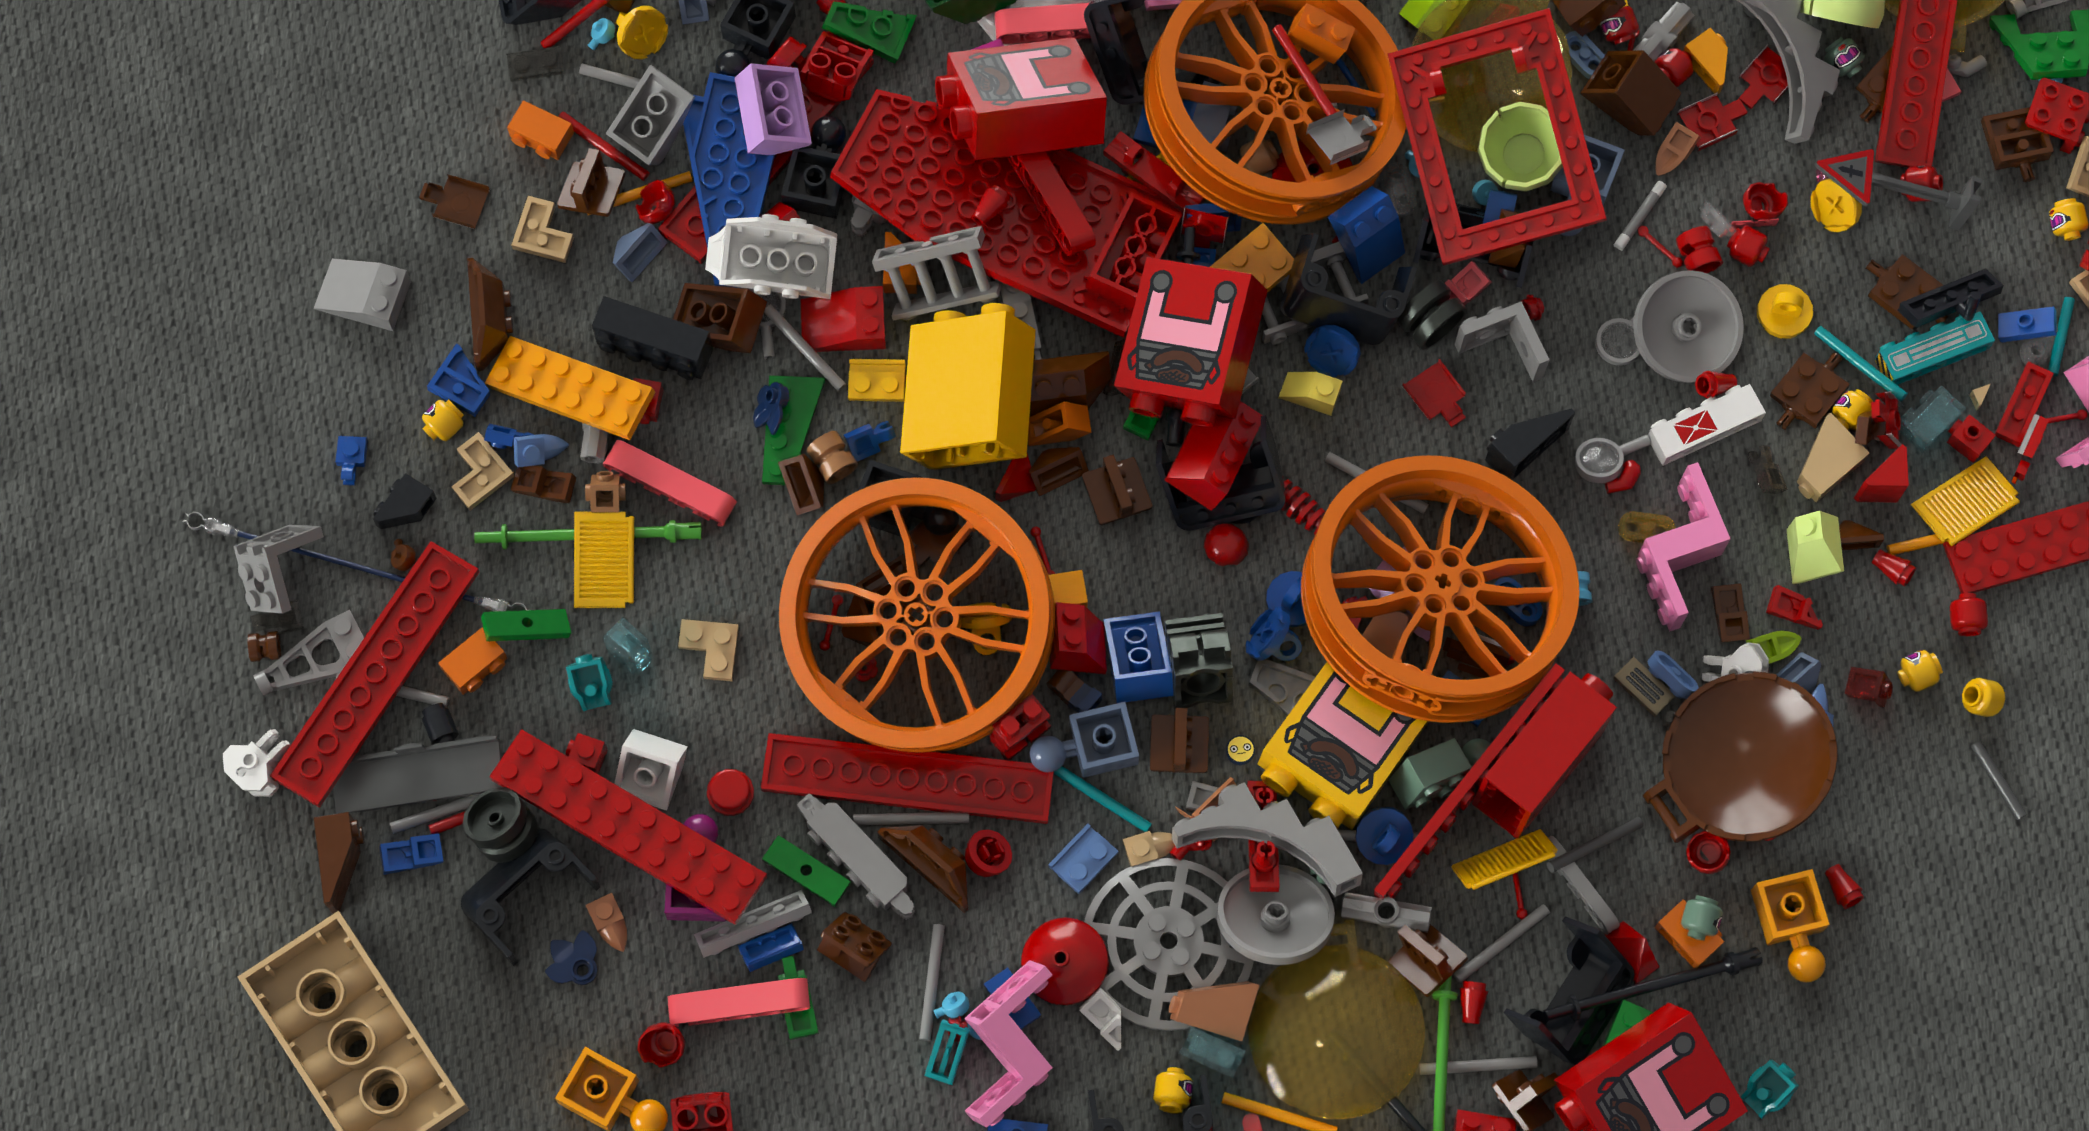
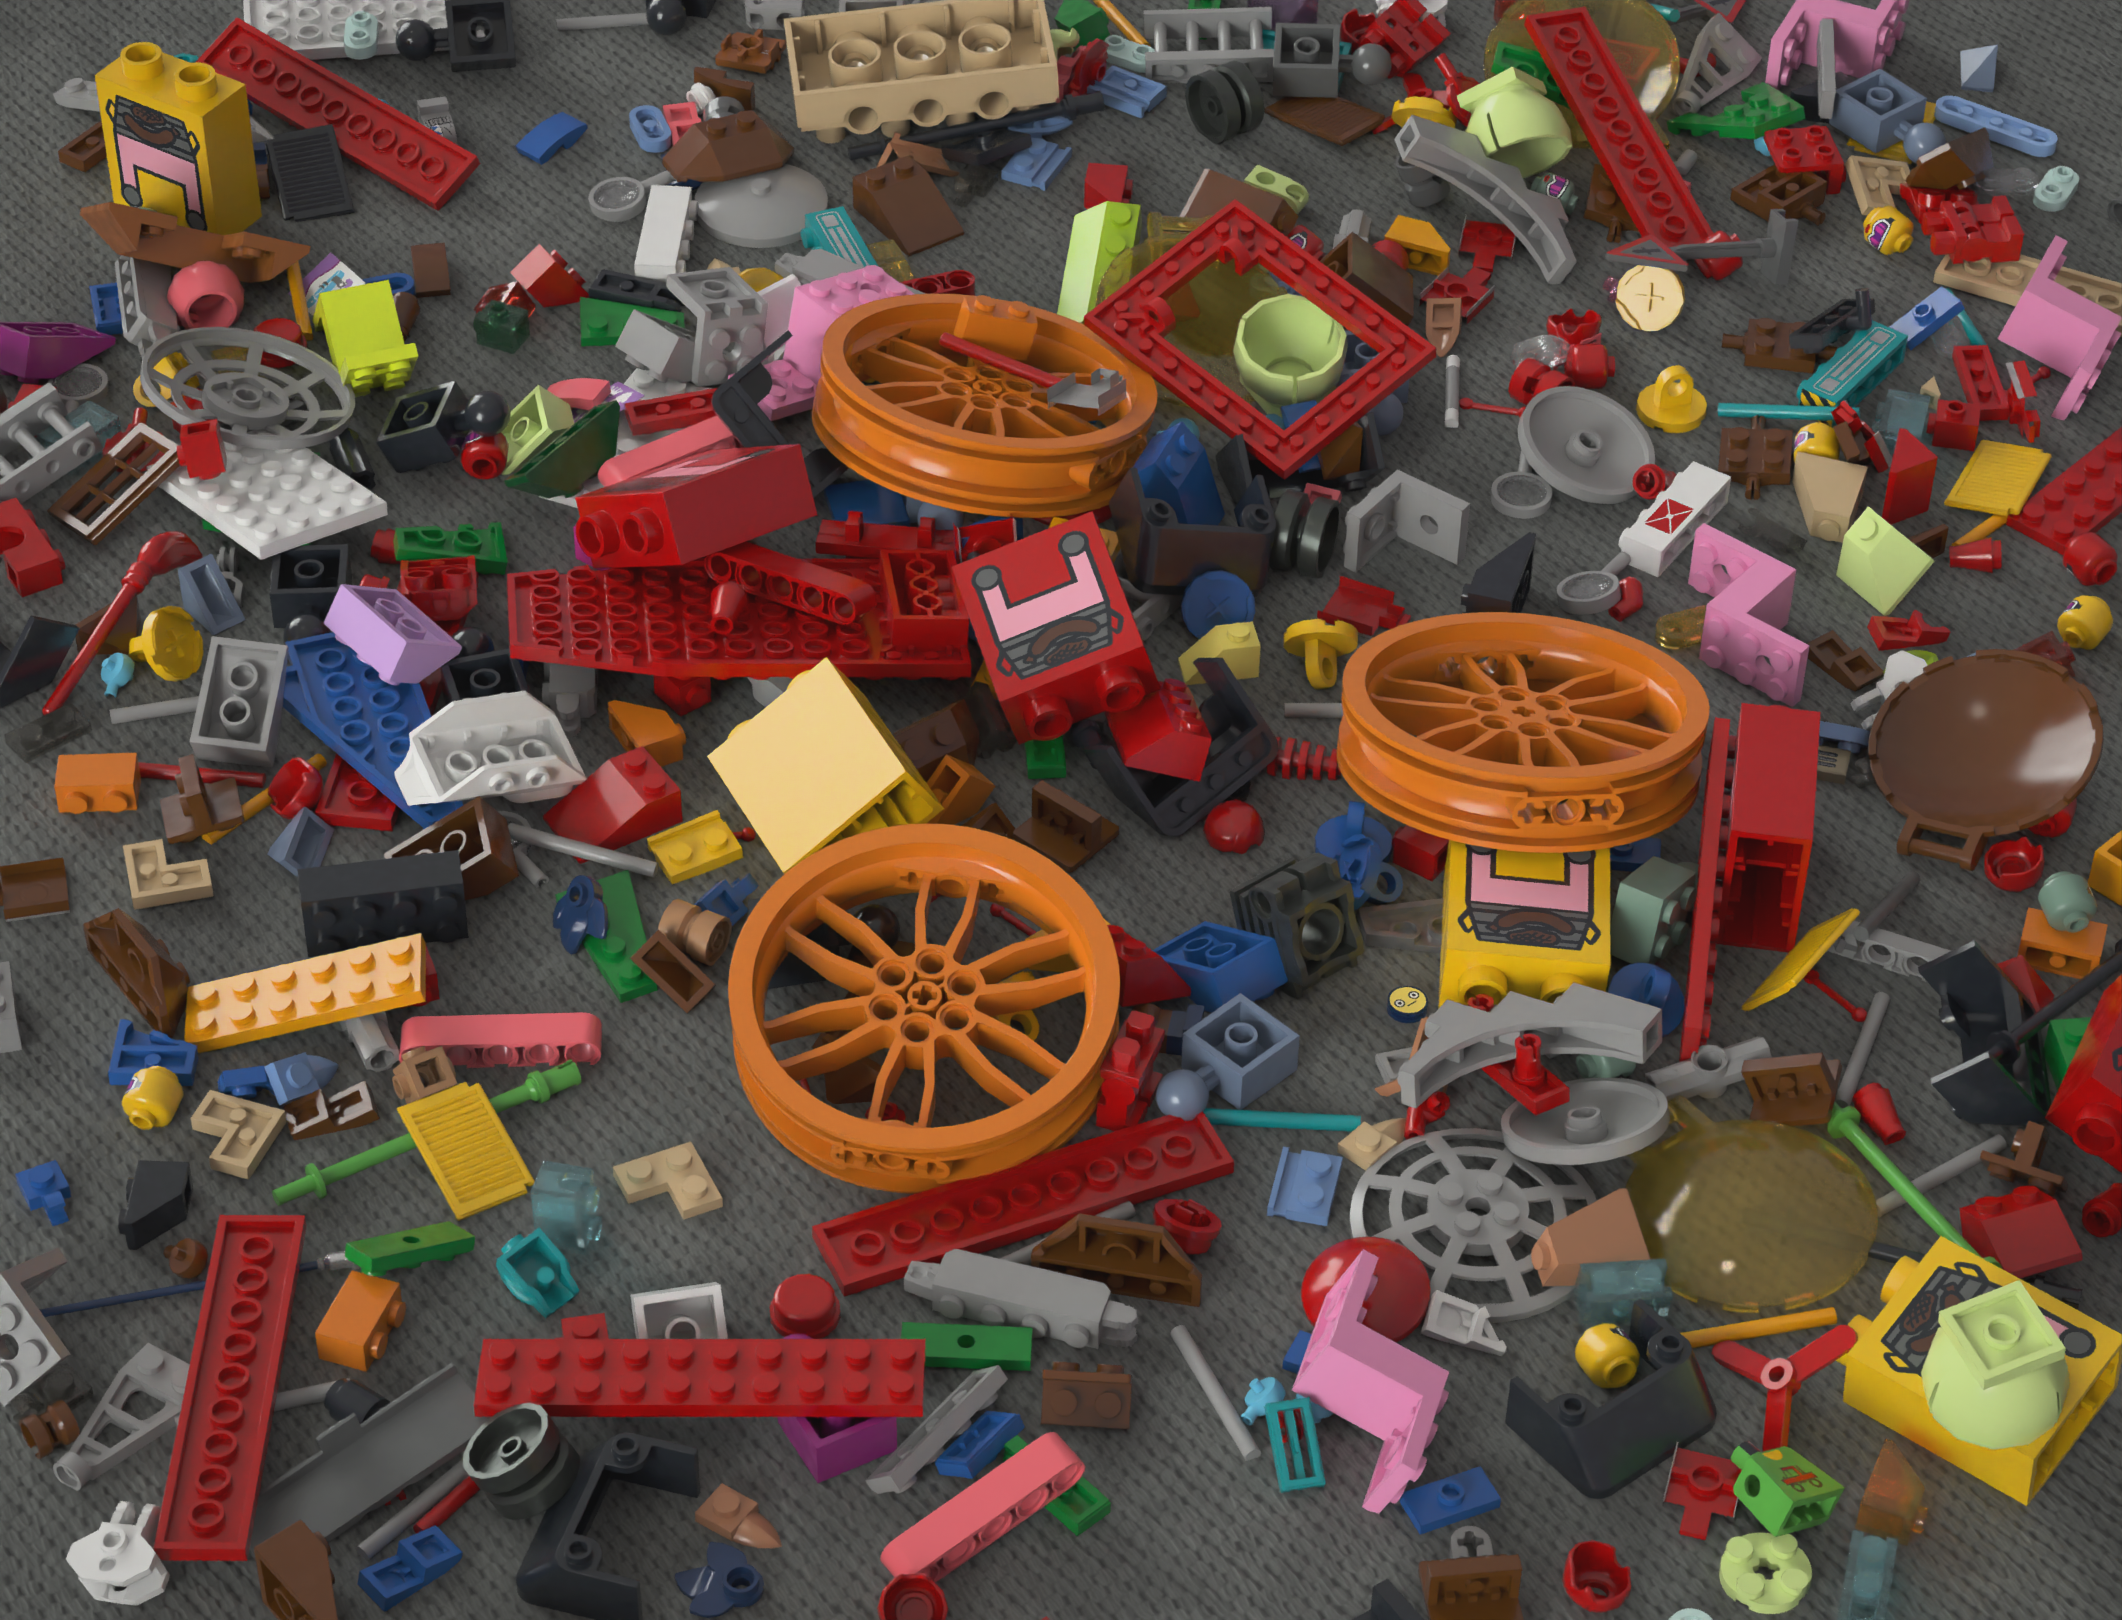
camera: 30 degrees left, 30 degrees down
(917, 253) = (670, 685): light grey fence -> none
(1179, 743) = (1330, 1023): reddish brown bracket -> none
(1377, 424) = (1320, 647): none -> yellow tile

